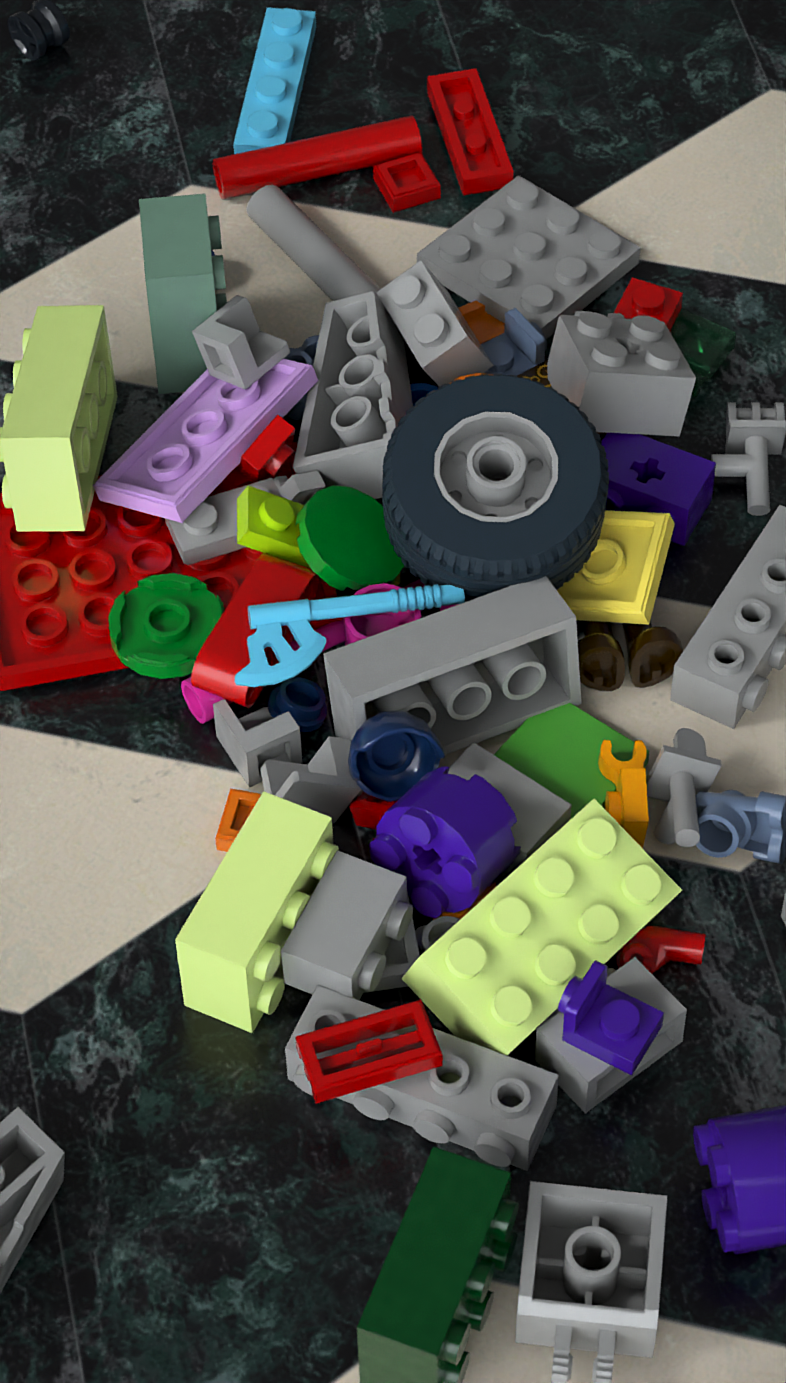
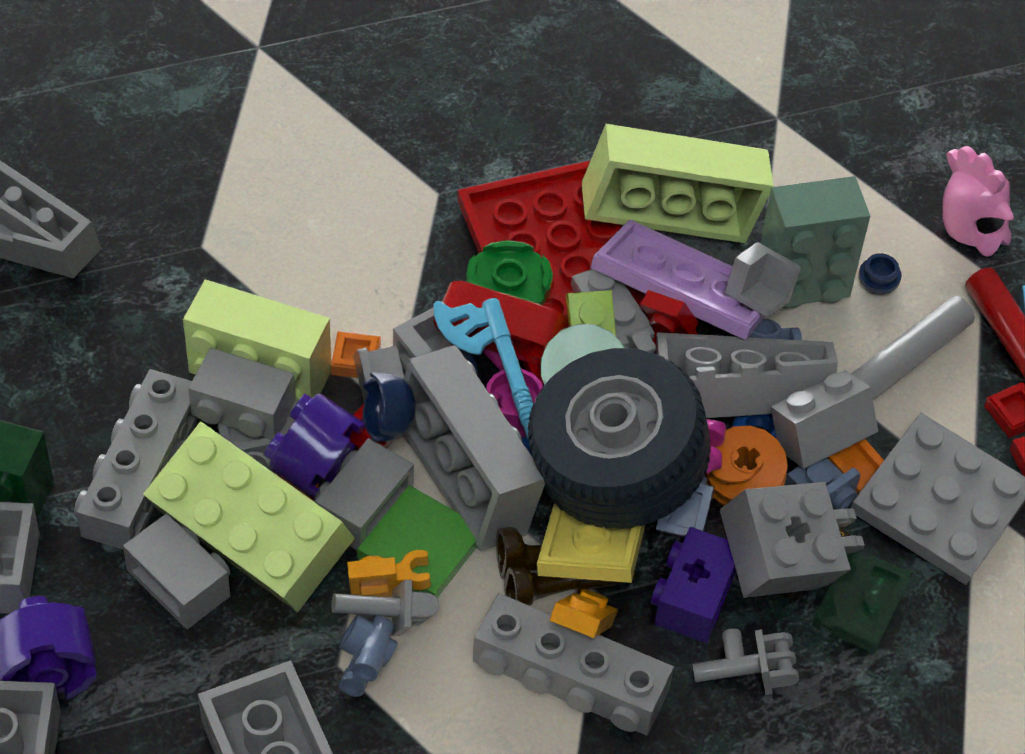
camera: 80 degrees right, 0 degrees up
(116, 150) = (973, 194): none -> bright pink piece
(373, 1060) = (146, 434): red tile -> none
(607, 1020) = (164, 547): dark purple bracket -> none
(650, 300) = (882, 572): red plate -> none
(658, 945) = (257, 603): red arm -> none
(704, 585) = (584, 613): none -> light orange plate

